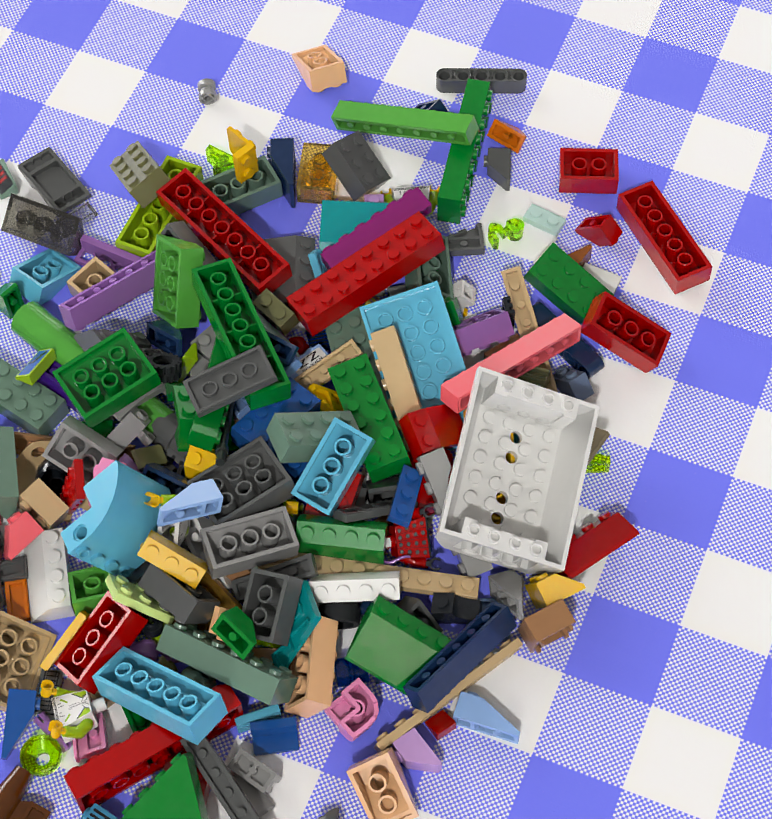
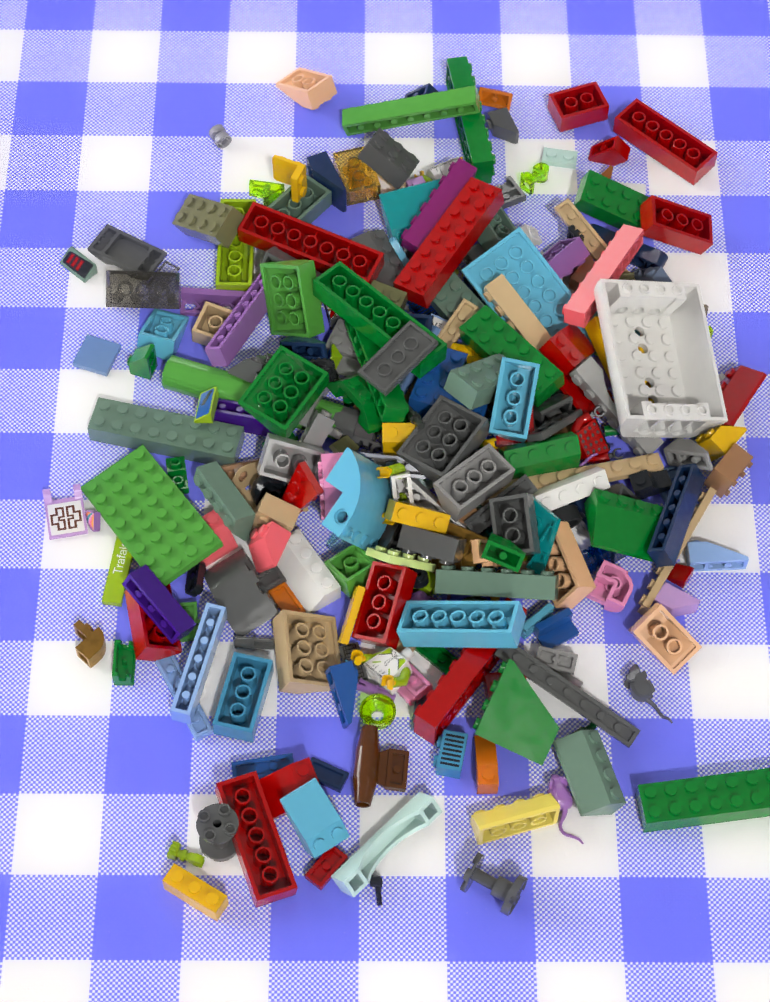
camera: 25 degrees left, 0 degrees up
(195, 501) = (421, 461): light blue slope -> none
(405, 496) = (574, 406): blue plate -> none
(501, 79) = (435, 62): dark grey beam -> none

